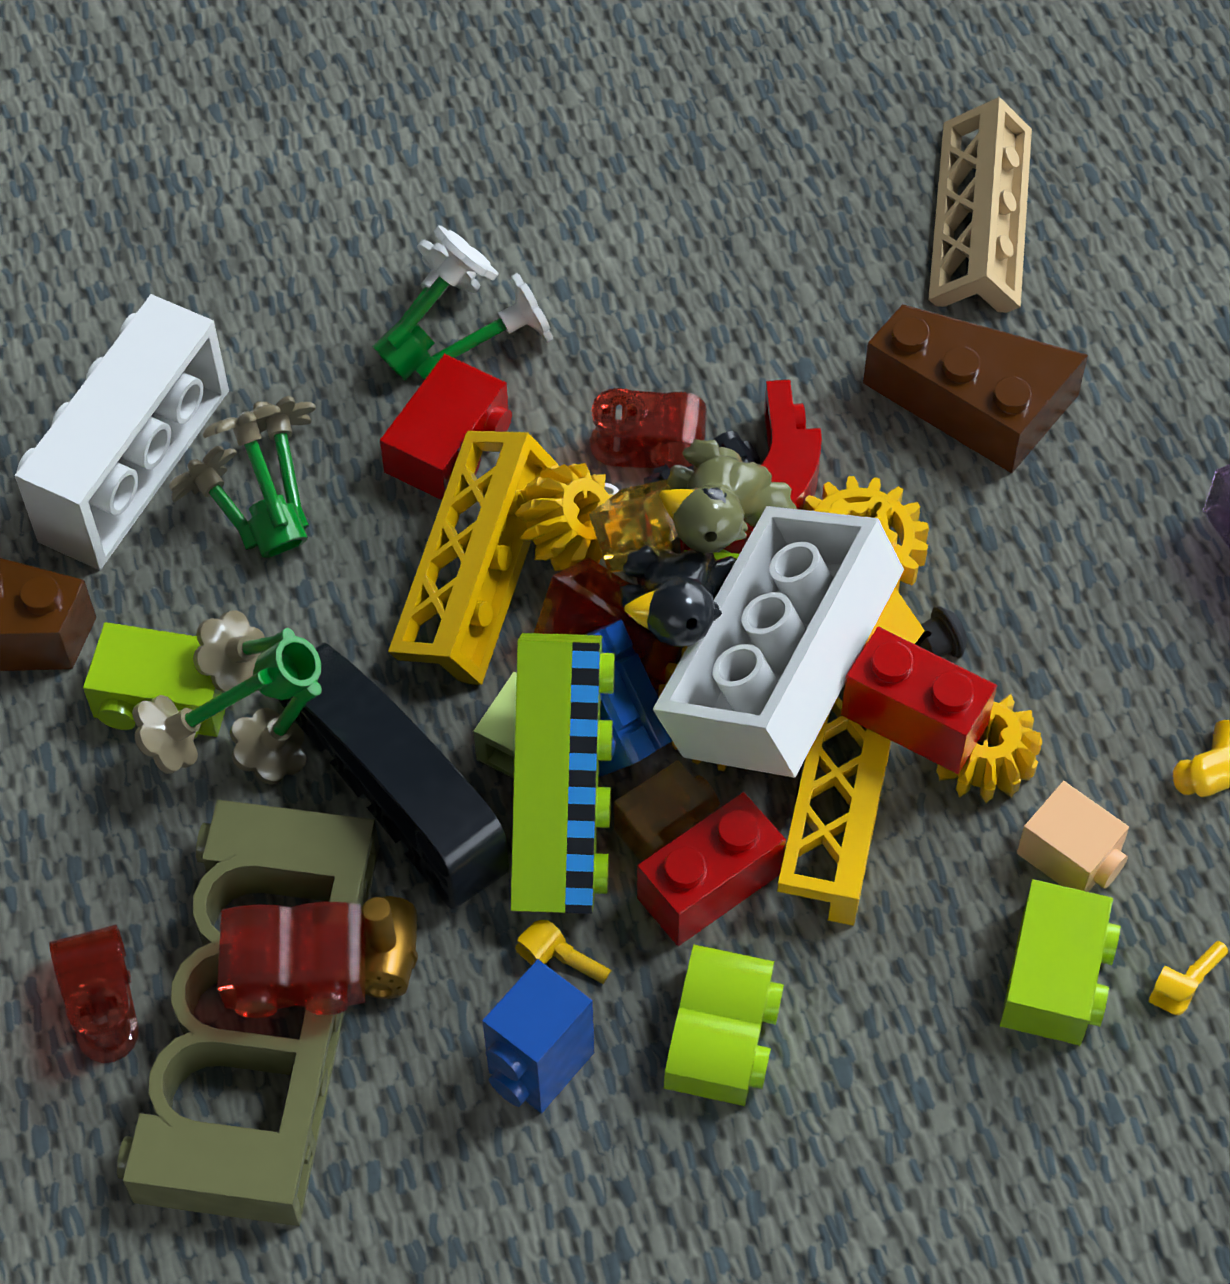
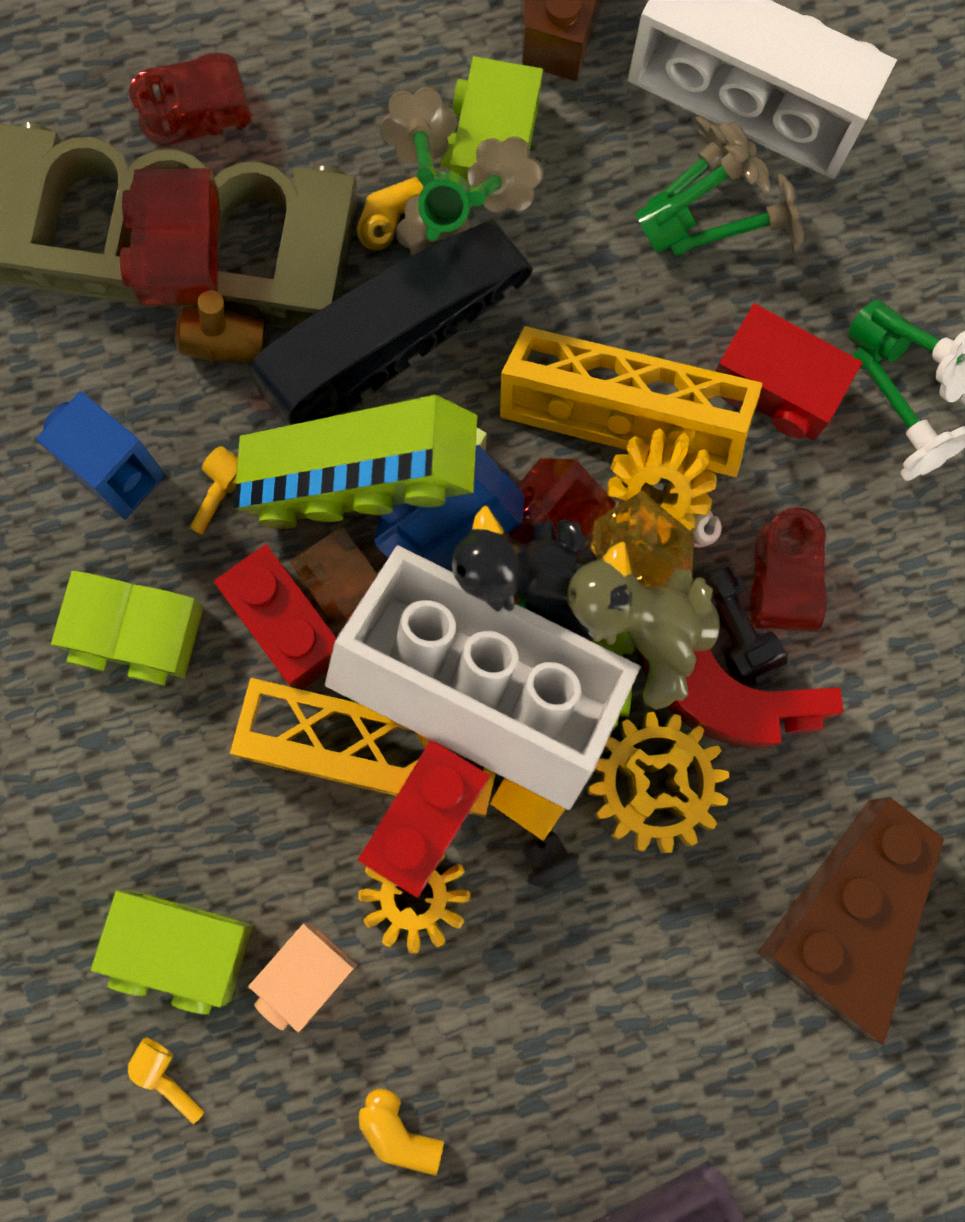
camera: 85 degrees right, 20 degrees up
(231, 785) = (382, 213): none -> yellow arm

